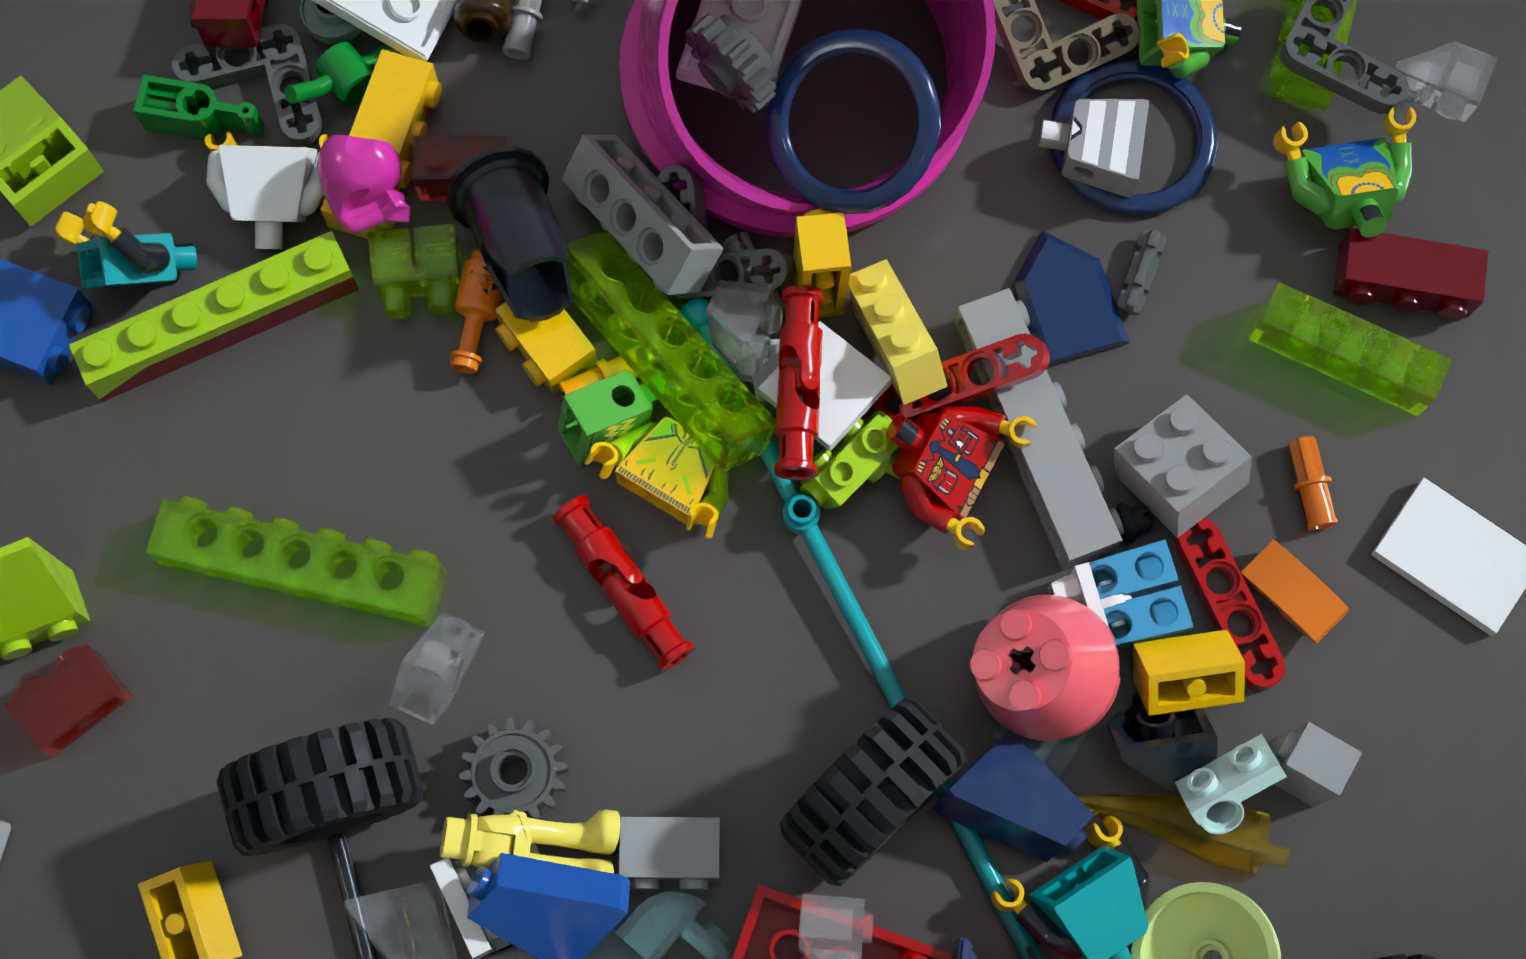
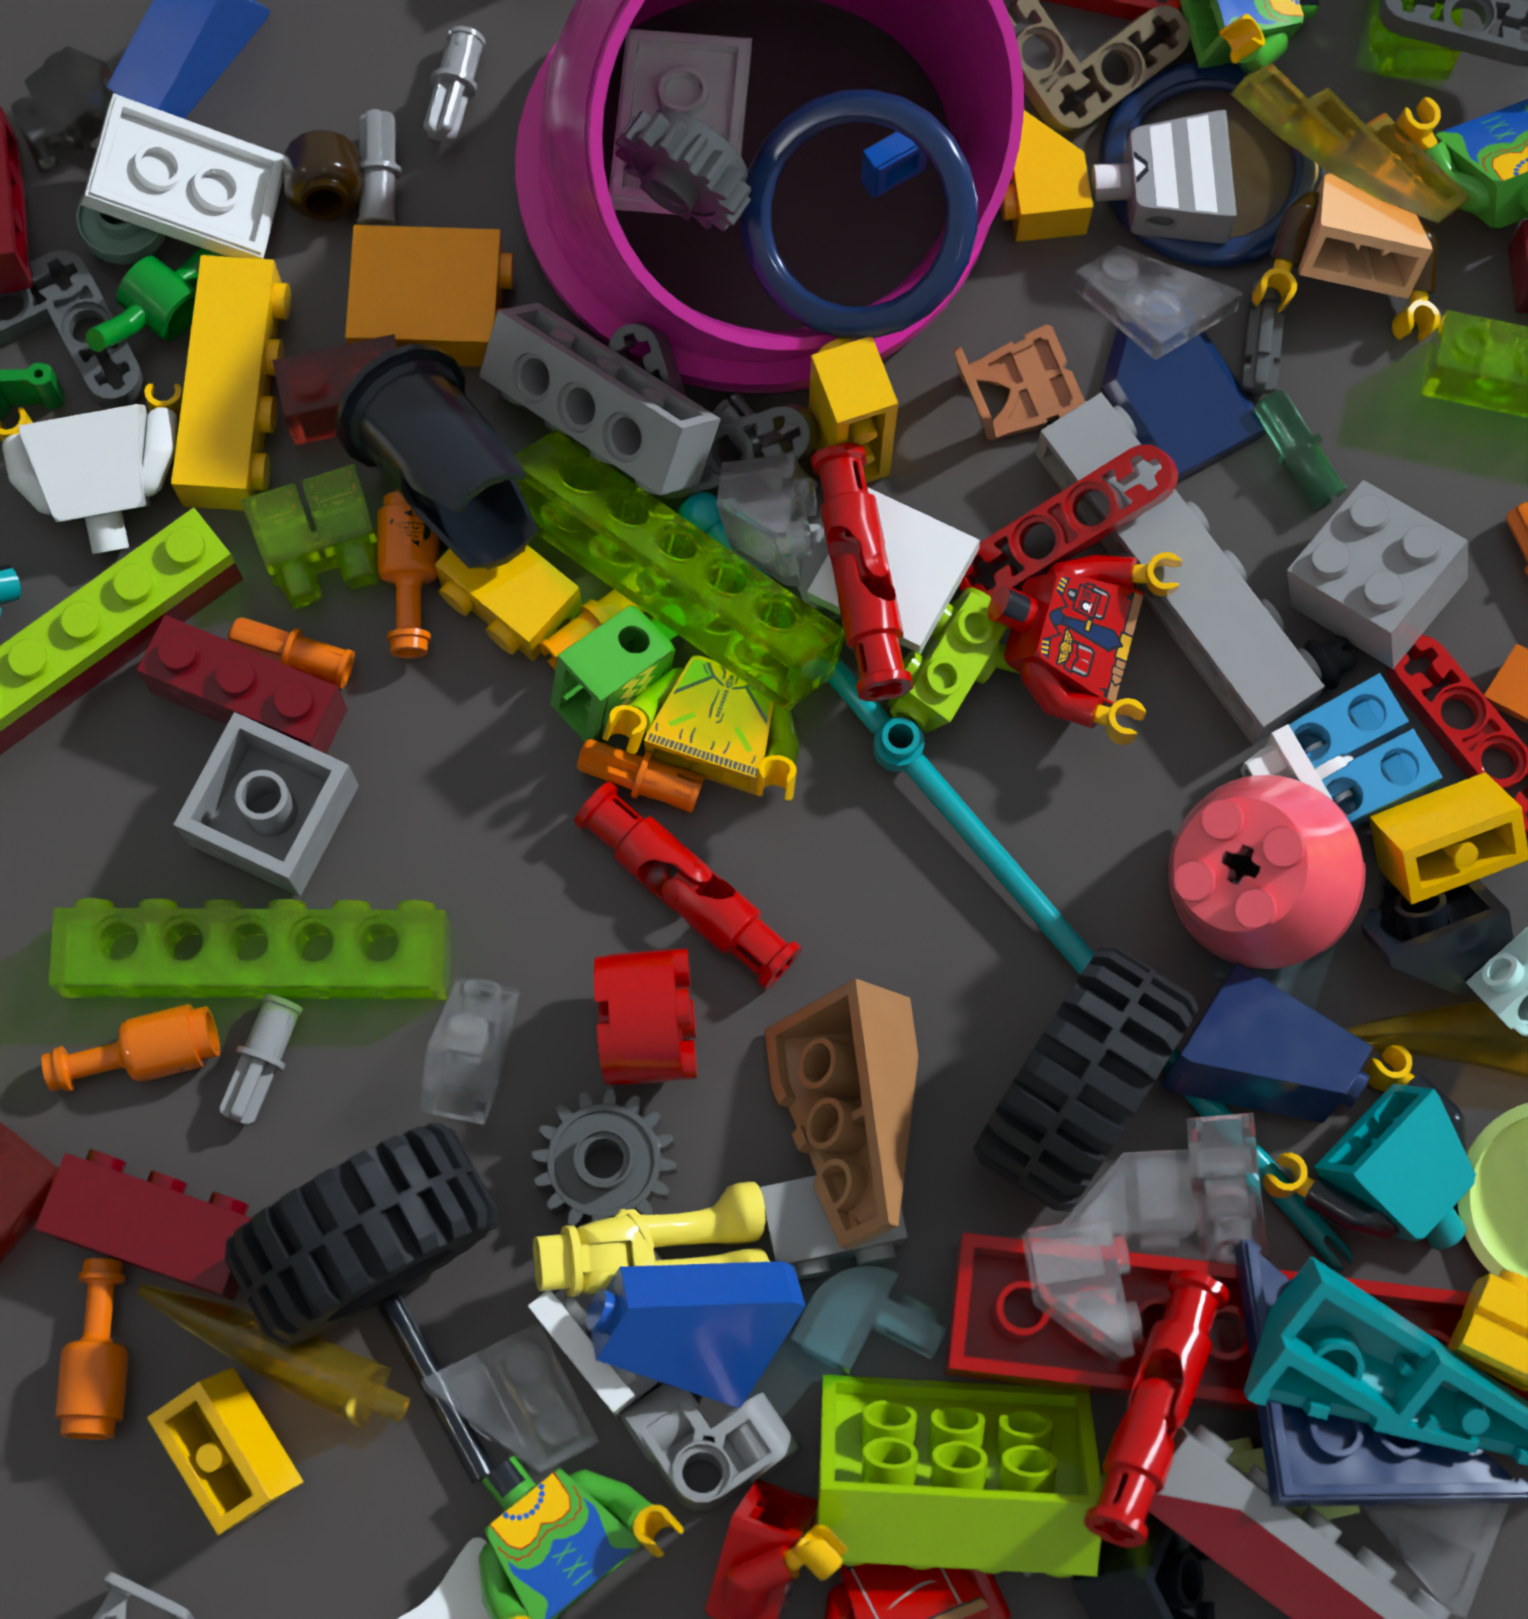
camera: 10 degrees left, 0 degrees up
(113, 837) = (94, 1367): none -> orange piece
(170, 739) = (143, 1221): none -> dark red brick
(205, 614) = (146, 1047): none -> orange piece
(270, 876) = (312, 1370): none -> clear yellow piece
(285, 641) = (259, 1059): none -> light grey axle
(333, 457) = (266, 804): none -> light grey brick
(337, 369) = (227, 678): none -> dark red brick
(361, 182) = (219, 432): dark pink piece -> none
(379, 350) = (295, 650): none -> orange axle
(539, 107) = (428, 287): none -> light orange brick
(566, 673) = (645, 1017): none -> red brick
(609, 494) = (641, 774): none -> orange axle
(703, 756) = (850, 1088): none -> medium nougat wedge
(886, 89) = (891, 163): none -> blue tile
(896, 332) = (969, 480): light yellow brick -> none
(897, 888) = (1145, 1198): none -> clear slope
(962, 893) = (1226, 1185): none -> clear slope
(965, 268) = (1036, 380): none -> nougat piece
(1006, 124) = (1048, 186): none -> yellow slope
(1066, 228) = (1153, 300): none -> clear wing
(1147, 360) = (1299, 449): none -> clear green axle
(1227, 215) = (1357, 243): none -> light nougat torso
(1246, 155) = (1368, 156): none -> clear yellow slope

